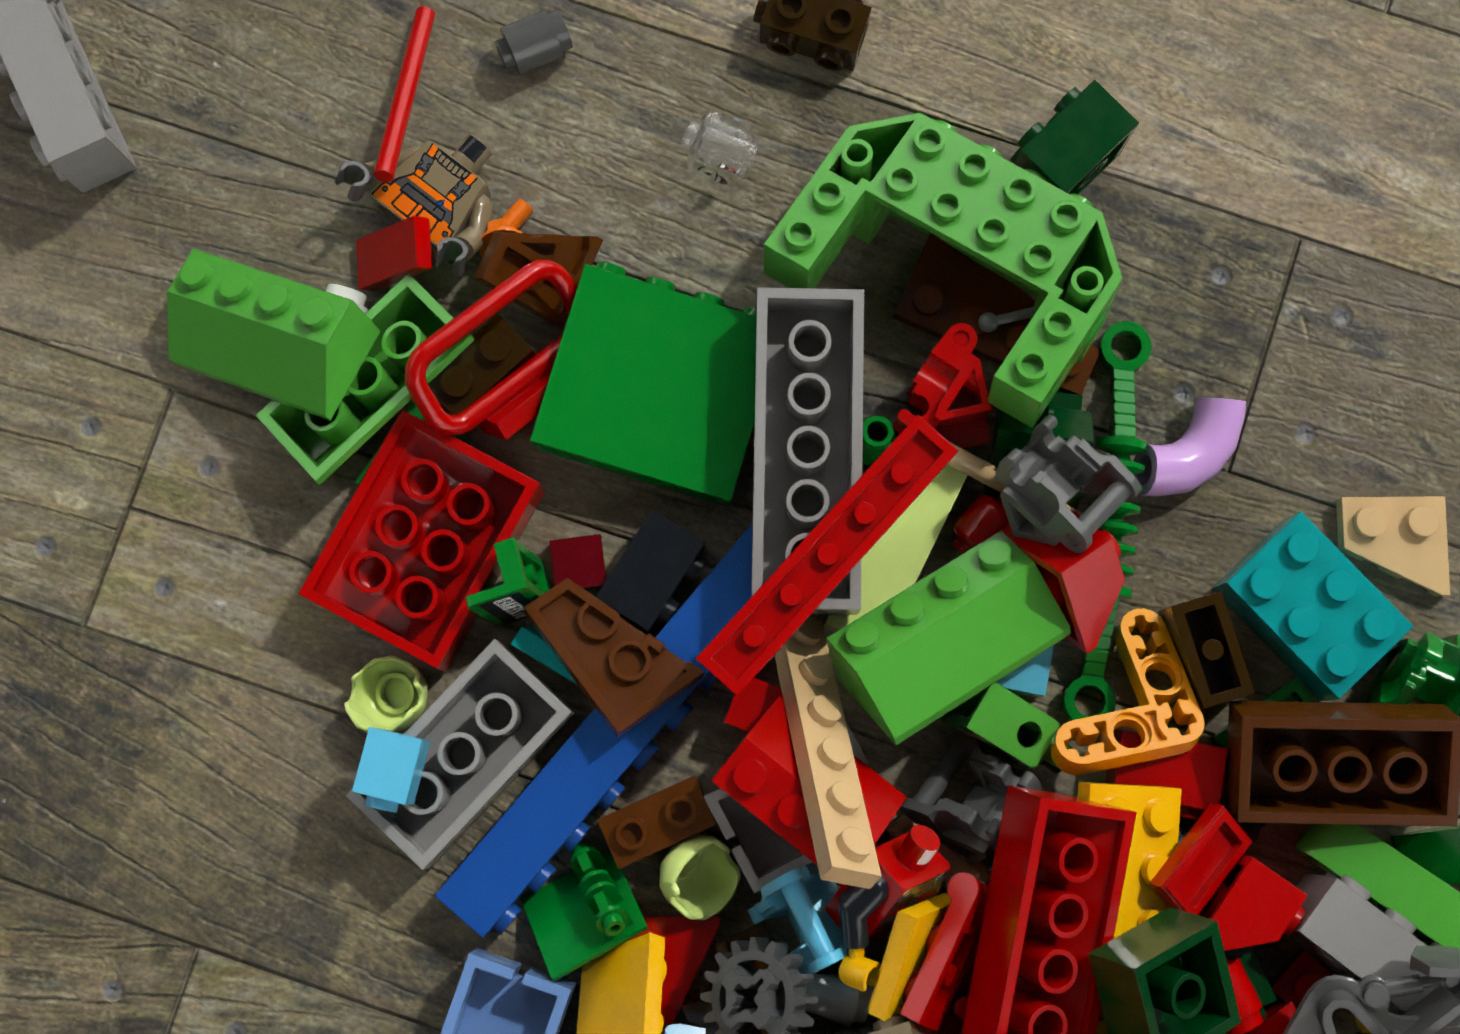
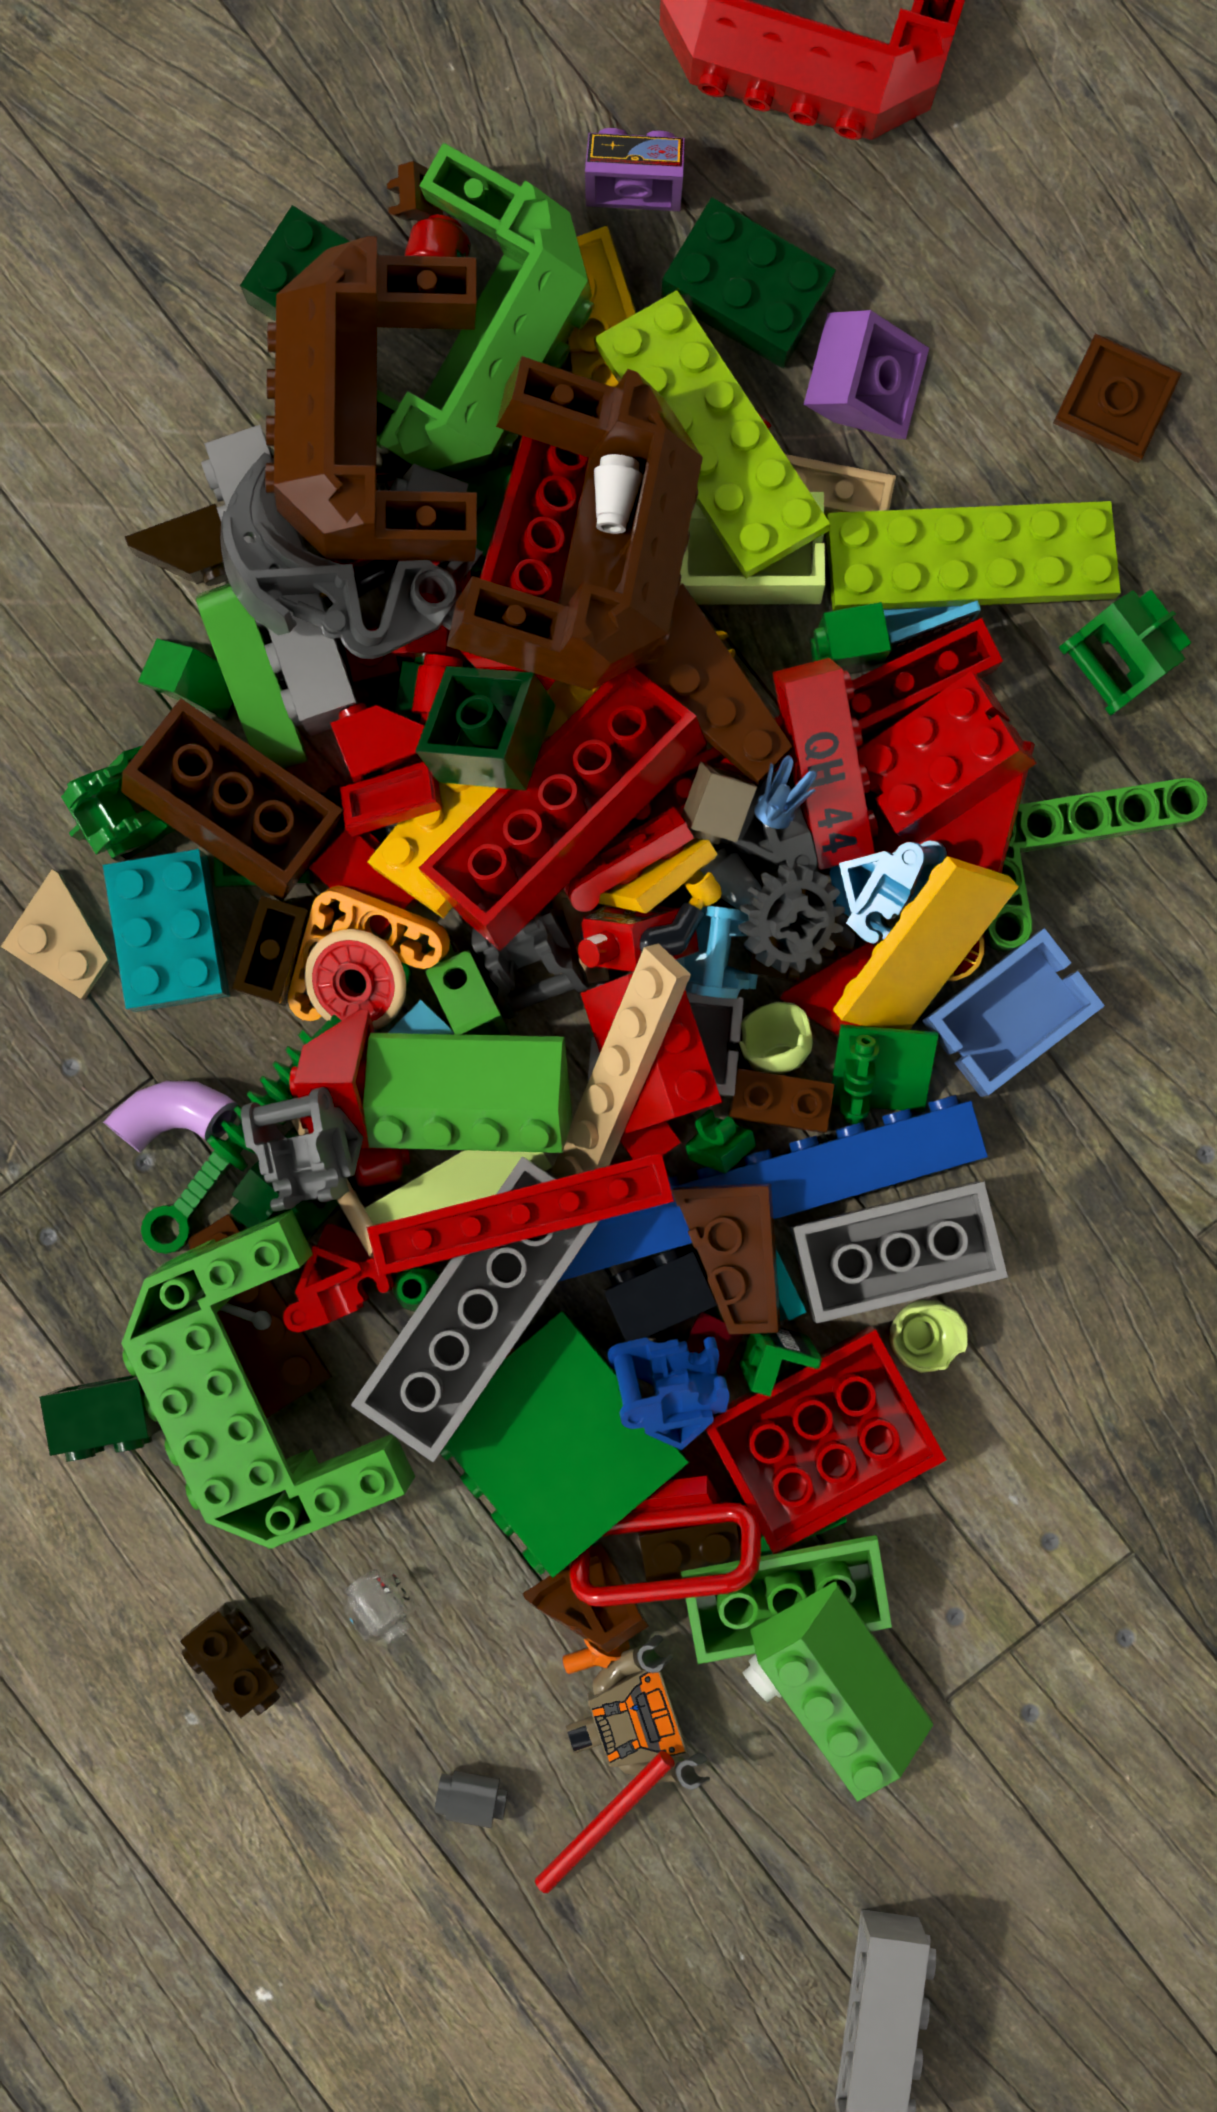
camera: 150 degrees left, 5 degrees up
(390, 769) = (959, 1273): medium azure brick -> none
(393, 253) = (698, 1691): red tile -> none
(576, 505) = (683, 1386): none -> blue piece
(688, 745) = (719, 1142): none -> green tile
(1113, 702) = (369, 956): none -> red wheel

